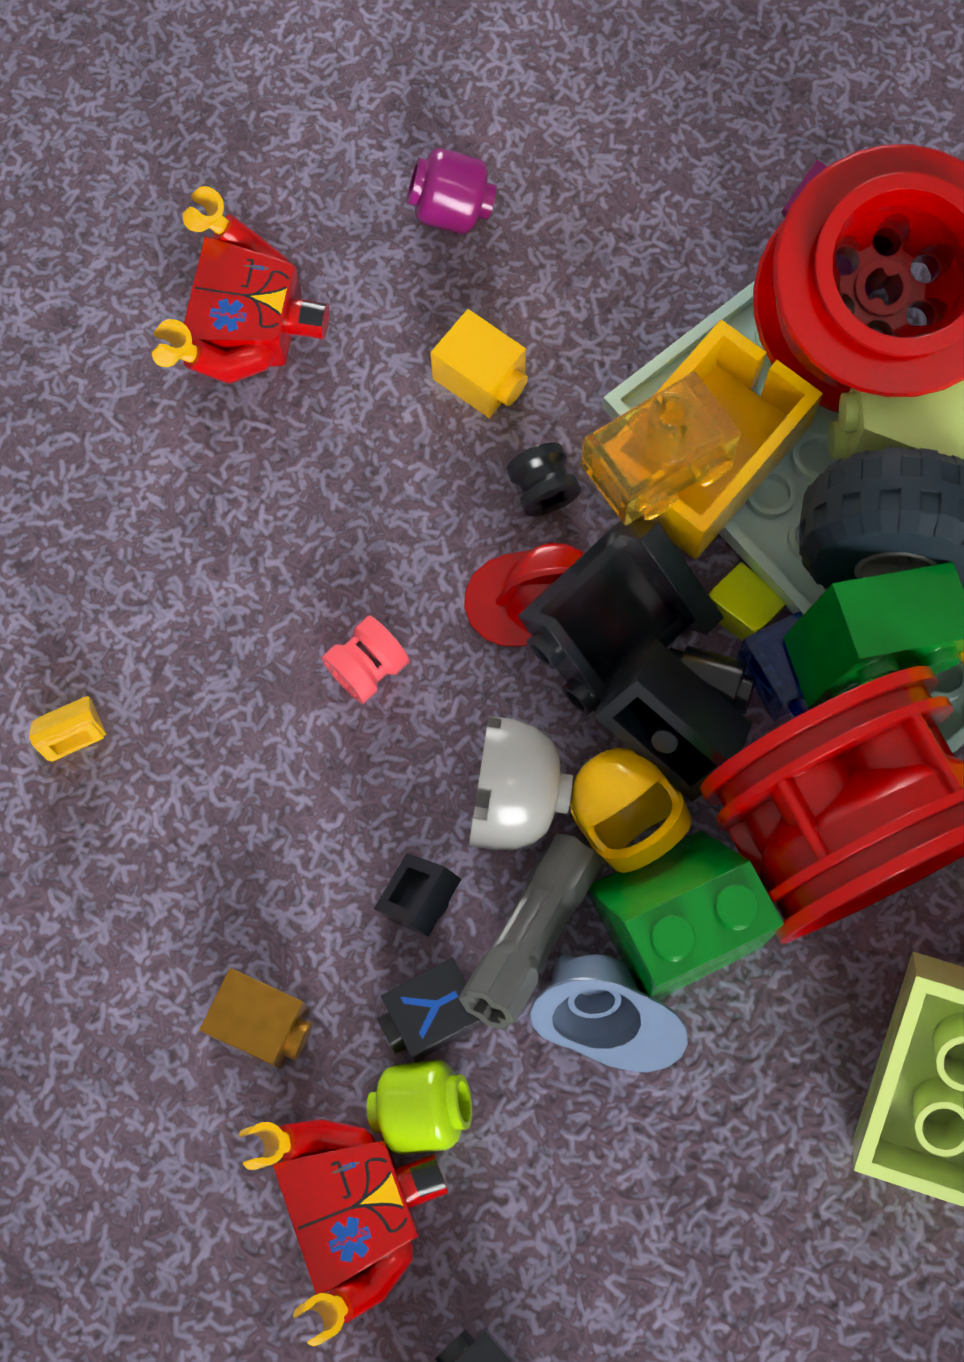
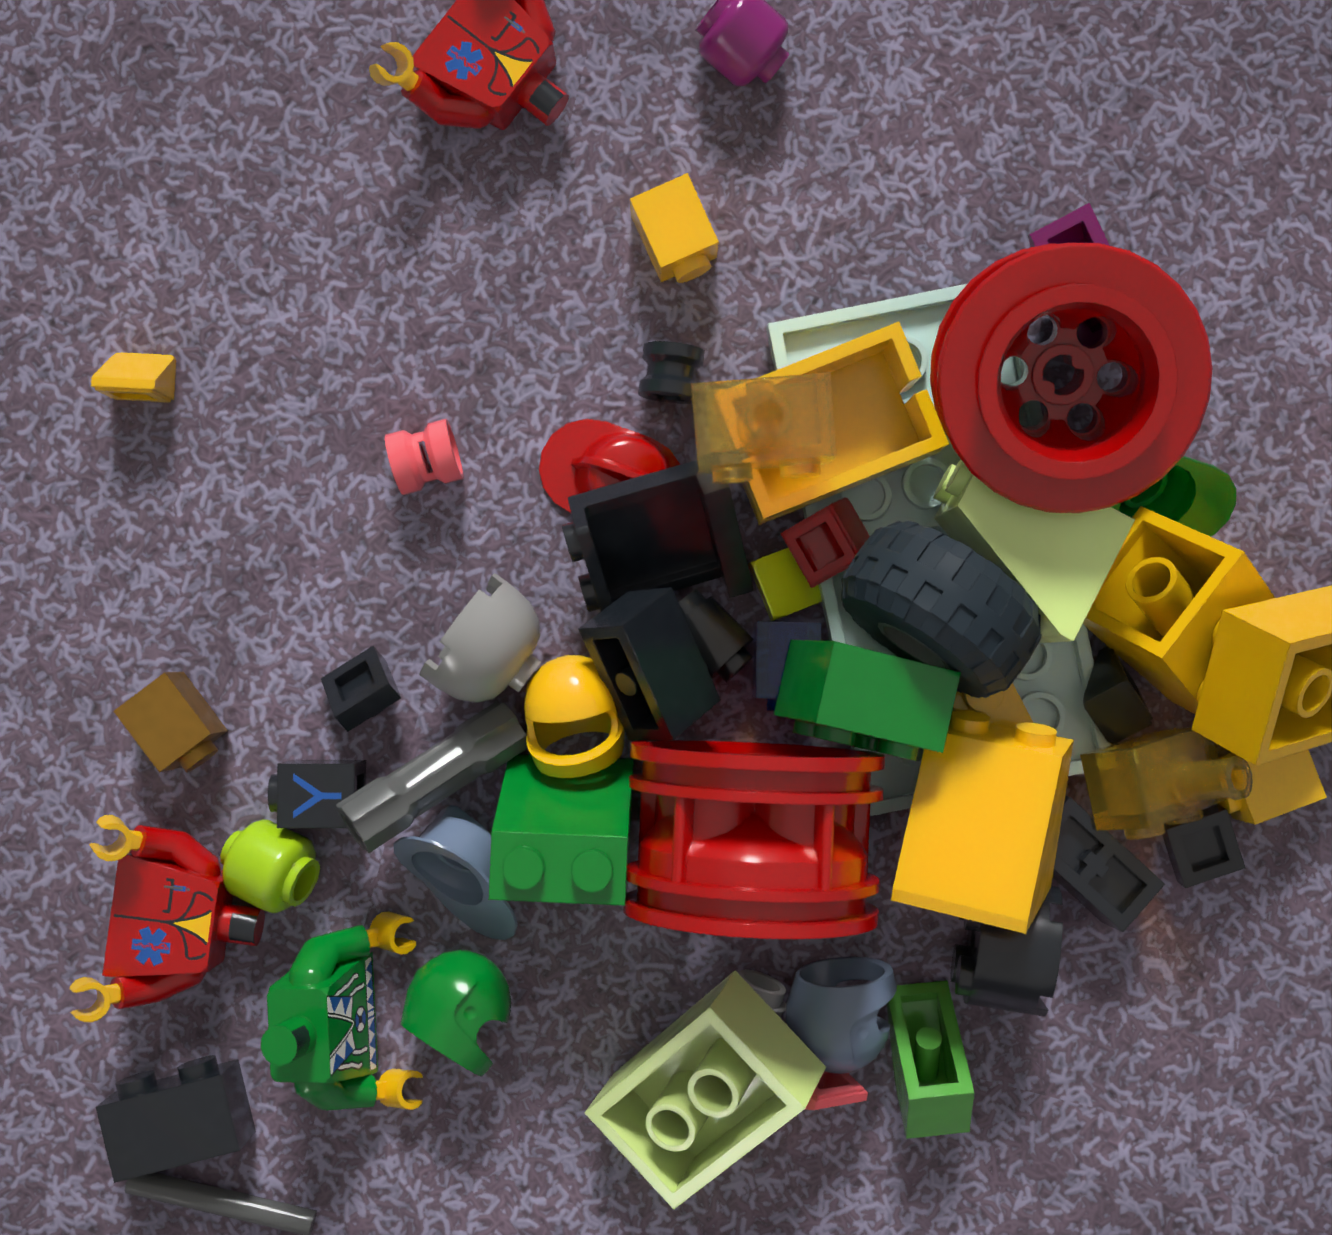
camera: 20 degrees right, 15 degrees up
(559, 1225) = (326, 1020): none -> green torso
(668, 1146) = (451, 1002): none -> green helmet
(762, 545) = (826, 541): none -> red slope

